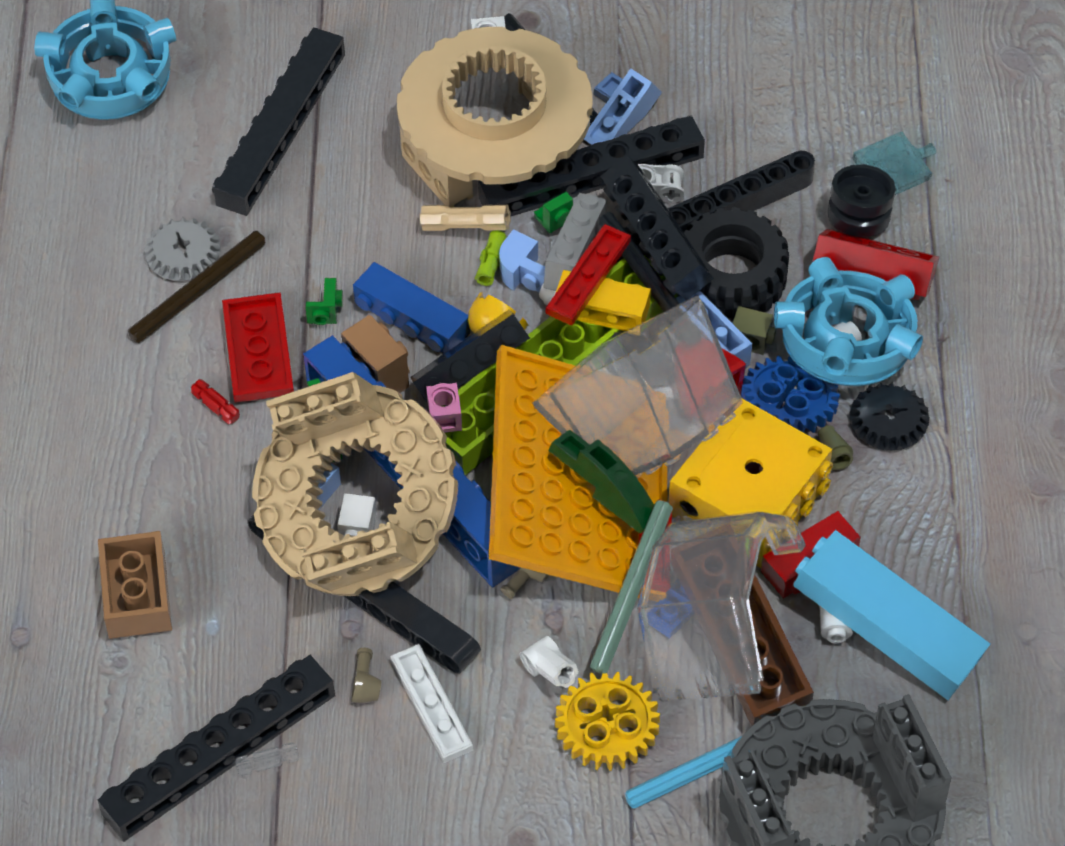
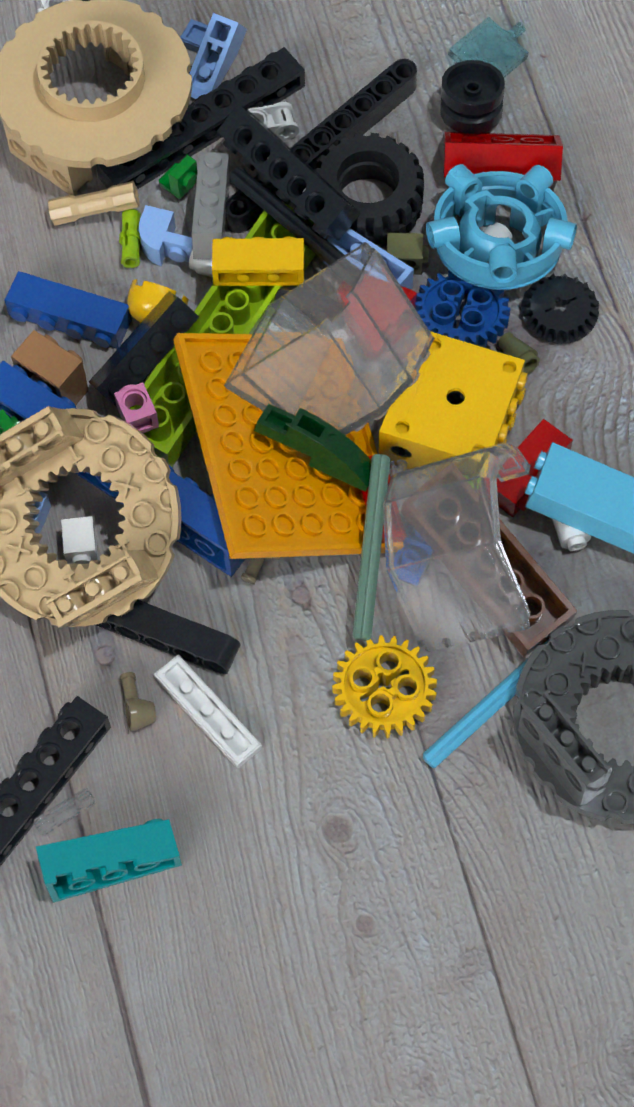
camera: 15 degrees left, 10 degrees up
(292, 809) = (107, 858): none -> teal wedge
(548, 661) = (307, 639): white piece -> none
(588, 274) = (239, 238): red tile -> none

